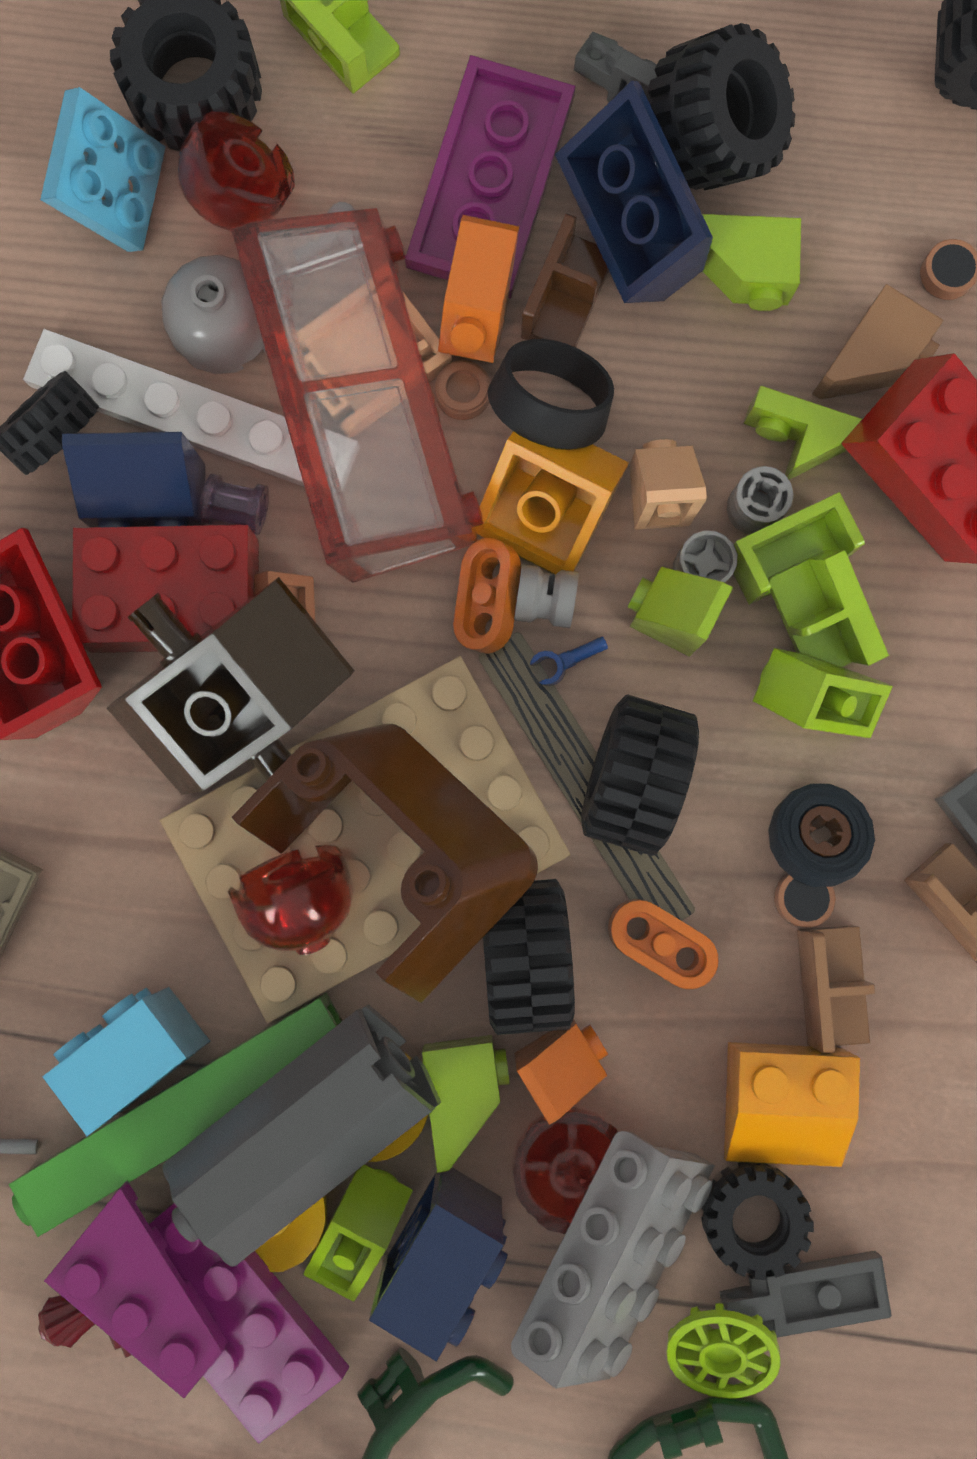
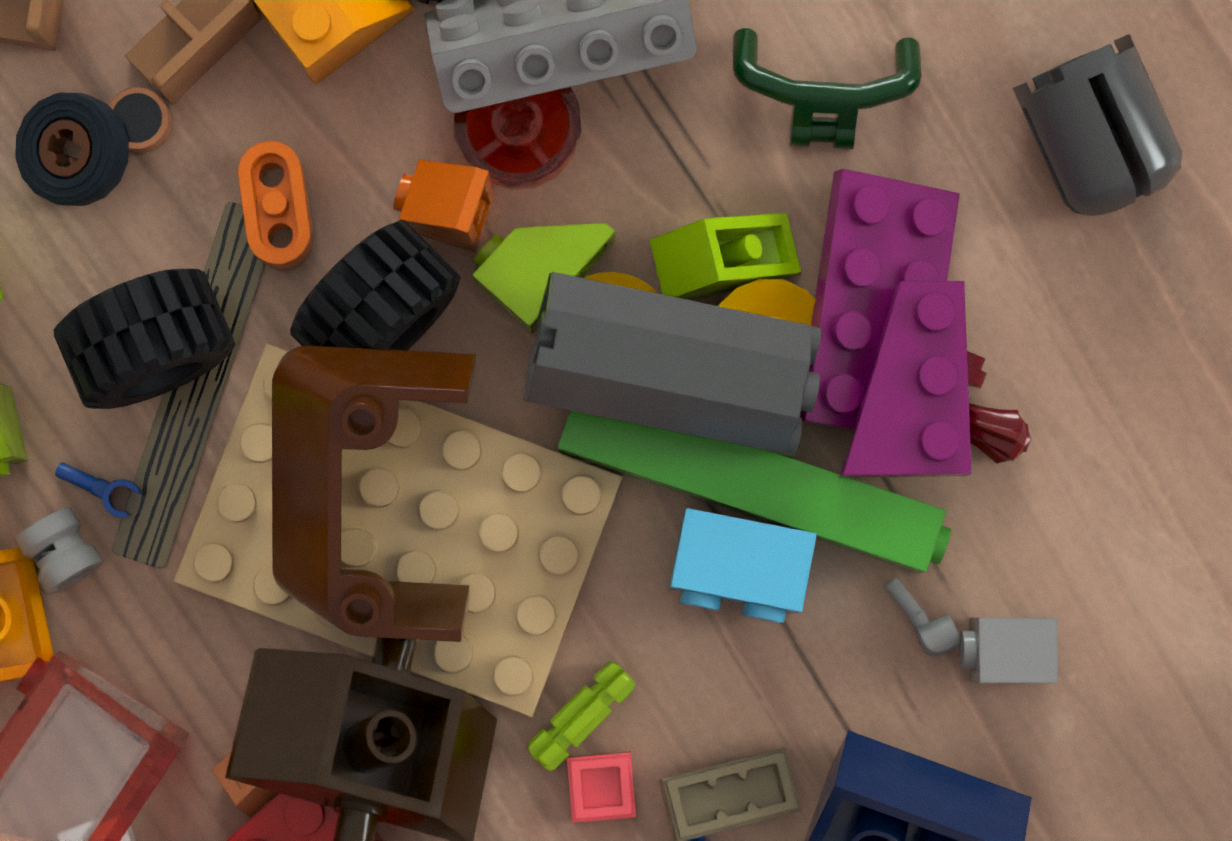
camera: 130 degrees left, 0 degrees up
(74, 826) = (601, 787): none -> coral tile
(132, 853) = (580, 716): none -> lime axle
(295, 900) = (492, 535): clear red cylinder -> none
(439, 1264) = (672, 167): dark blue brick -> none
(487, 597) = (105, 603): orange plate -> none

